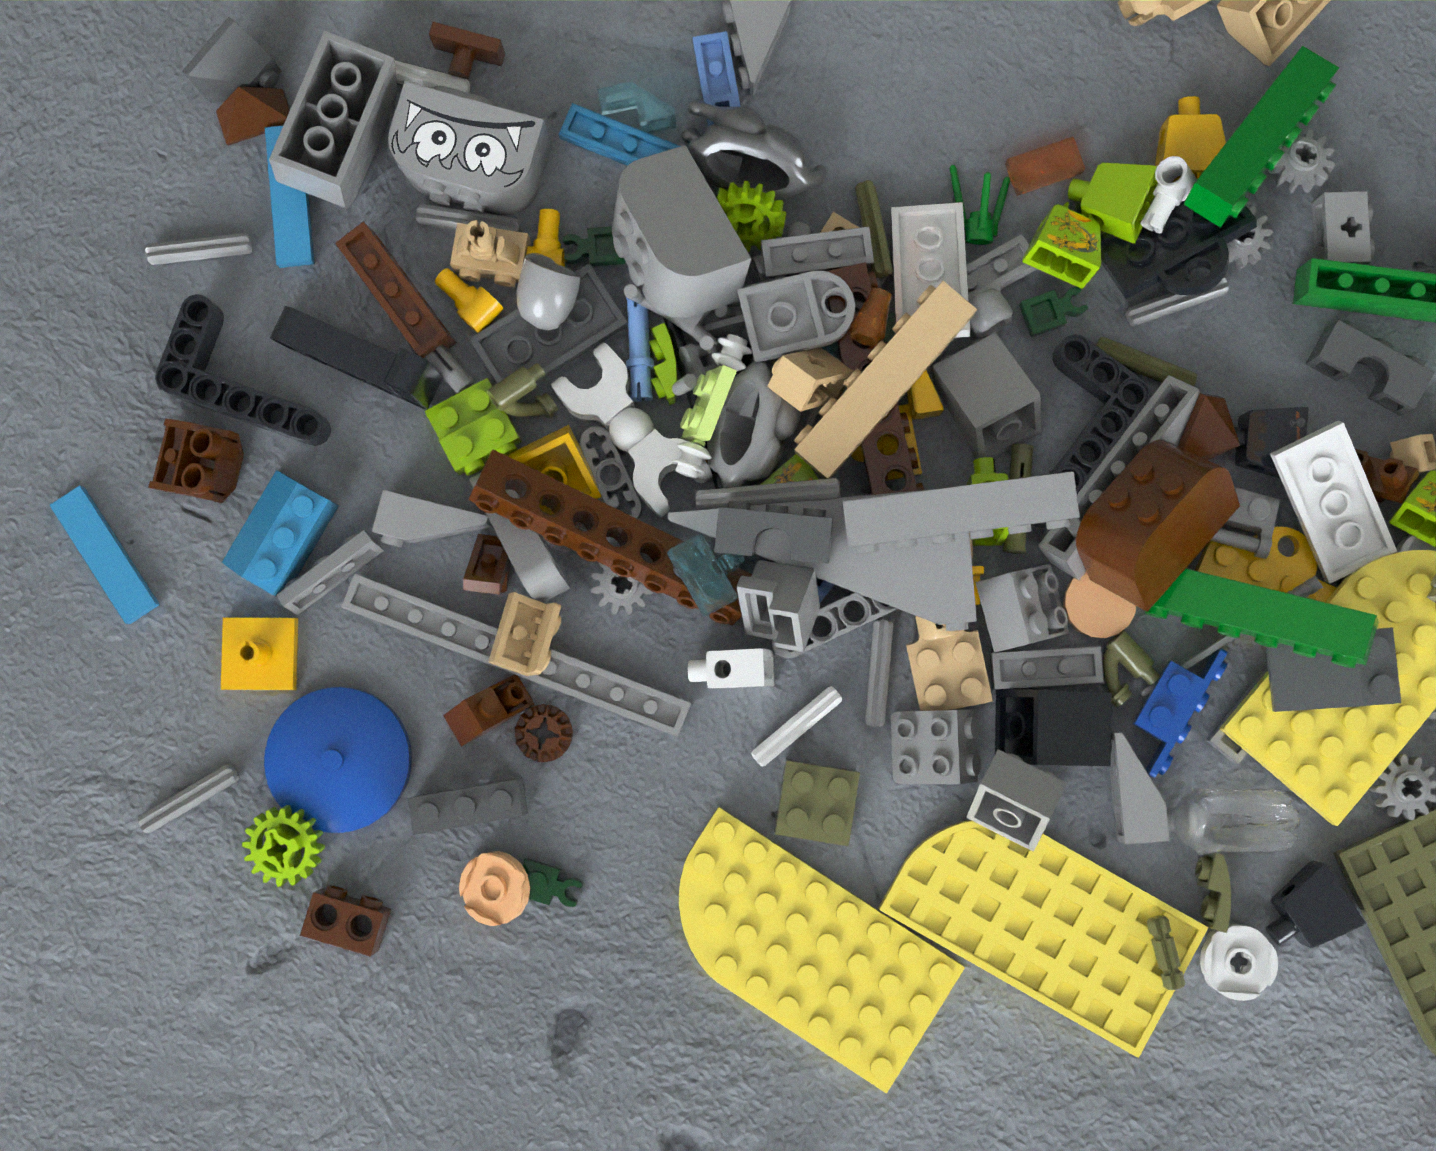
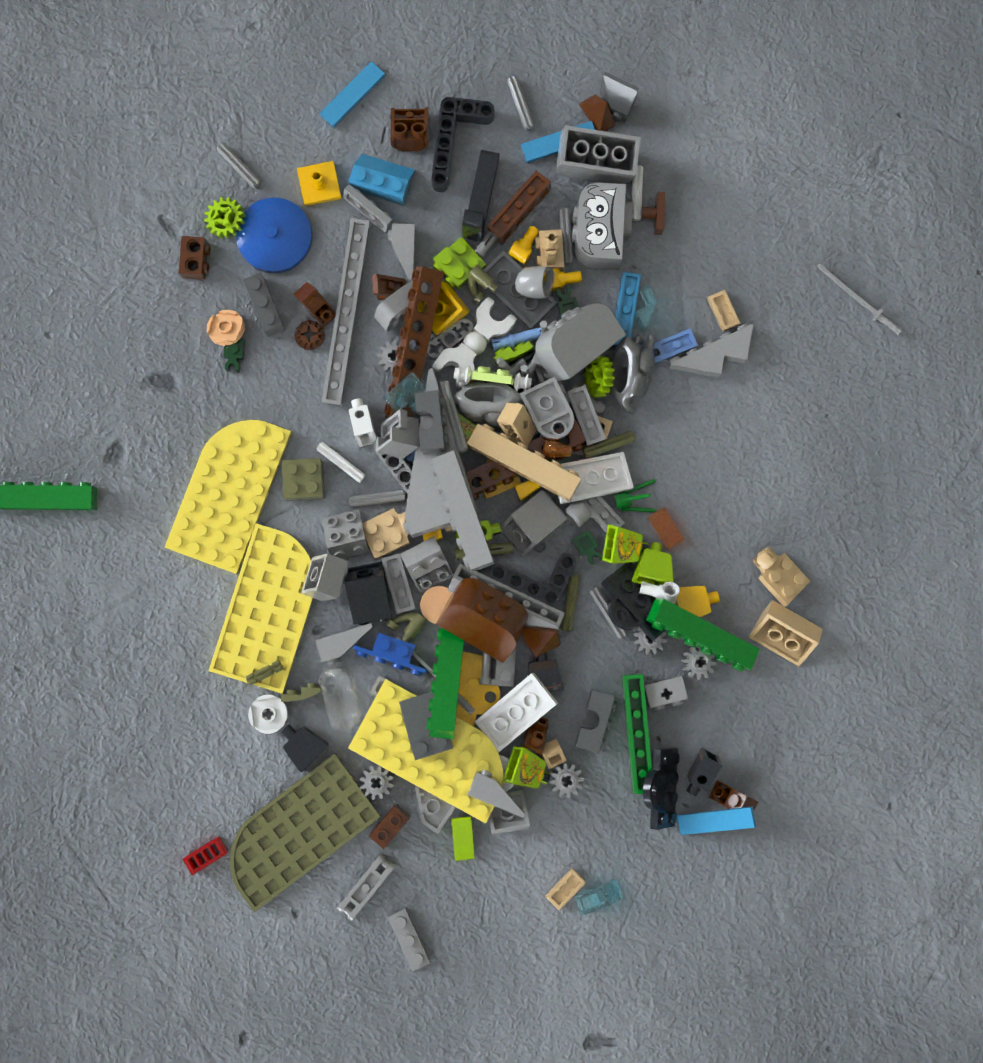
camera: 70 degrees right, 0 degrees up
(525, 635) = (356, 312): tan bracket -> none

